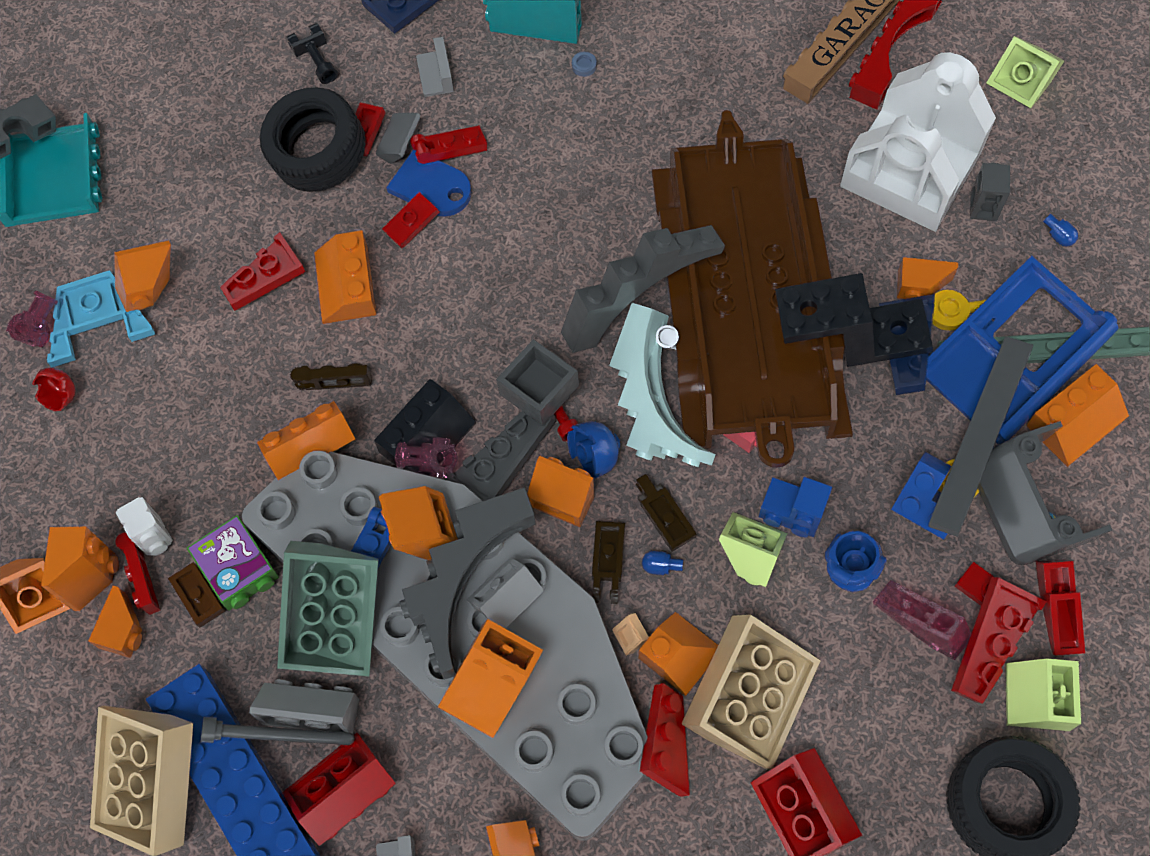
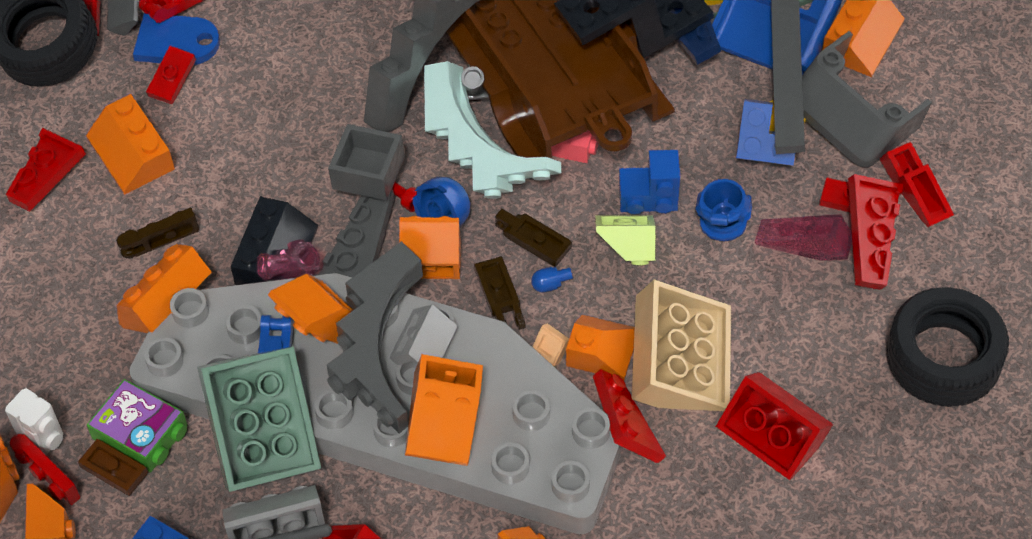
camera: 25 degrees left, 10 degrees down
(1043, 694) = (934, 255): yellowish green slope -> none

